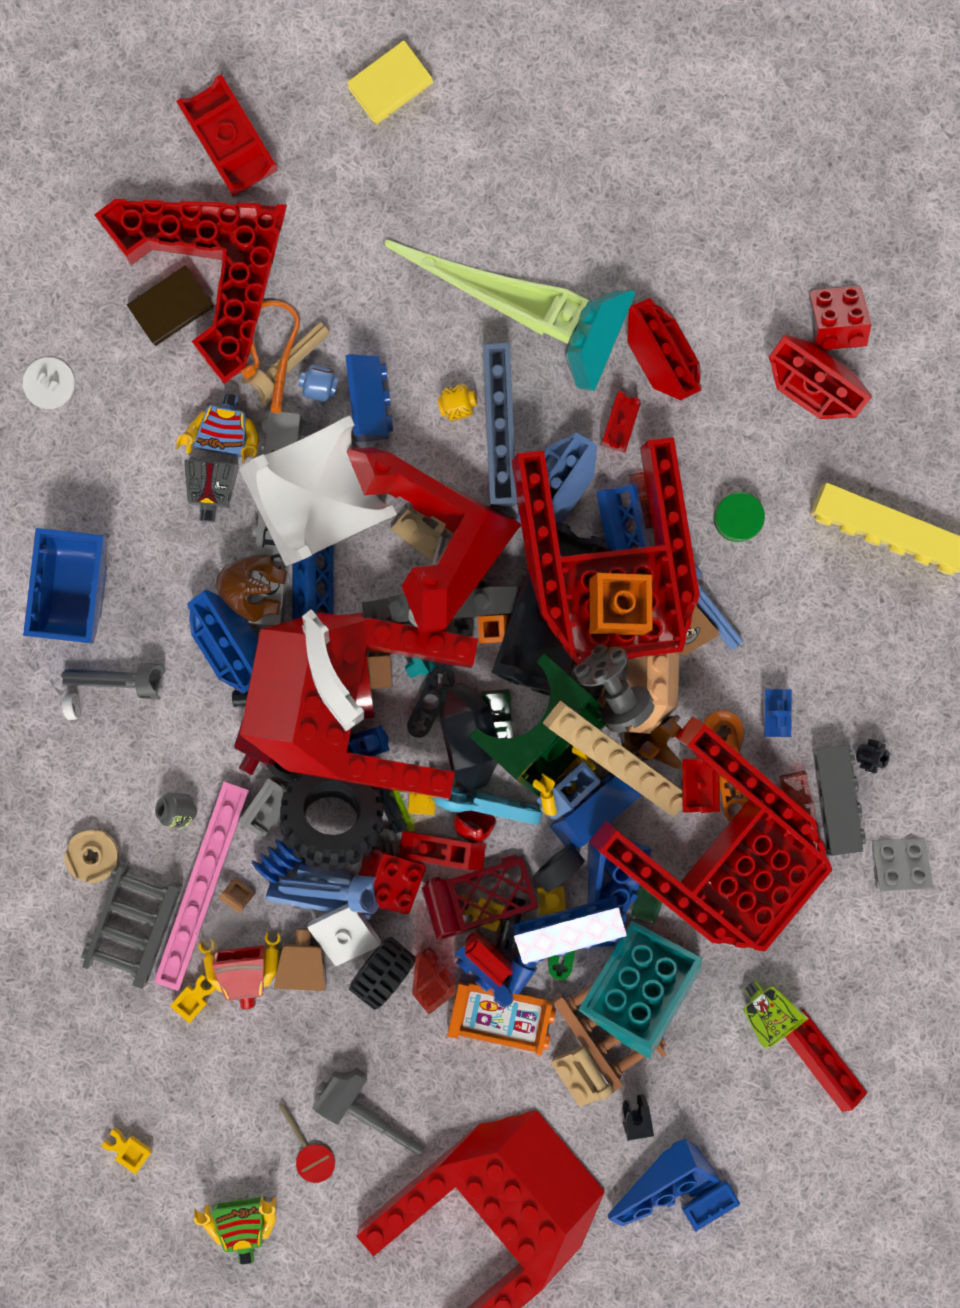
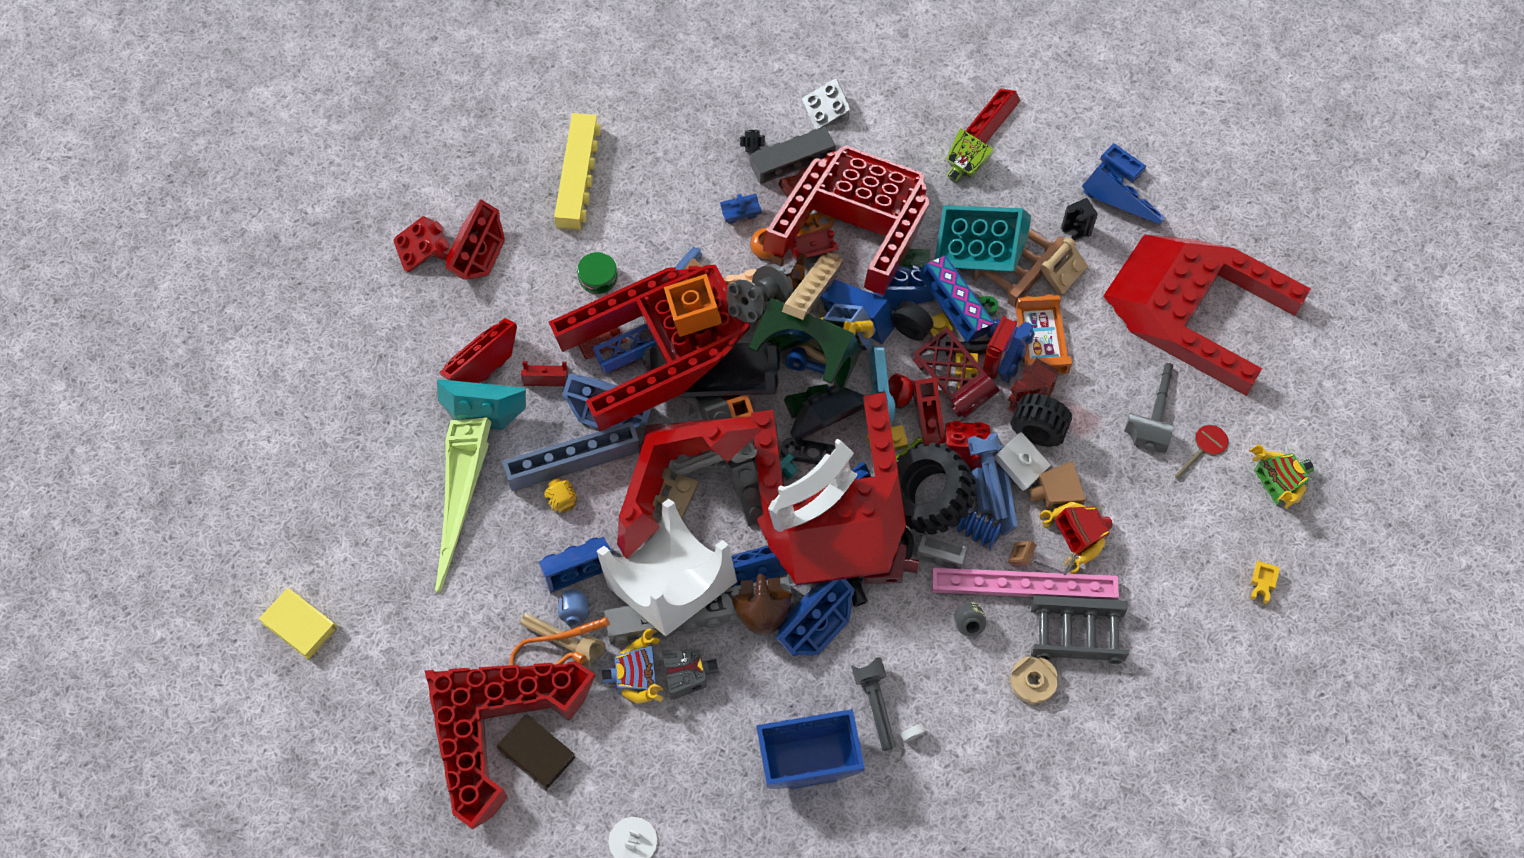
camera: 105 degrees left, 25 degrees down
(192, 1000) = (1122, 565): yellow plate -> none
(228, 136) = (371, 743): red piece -> none

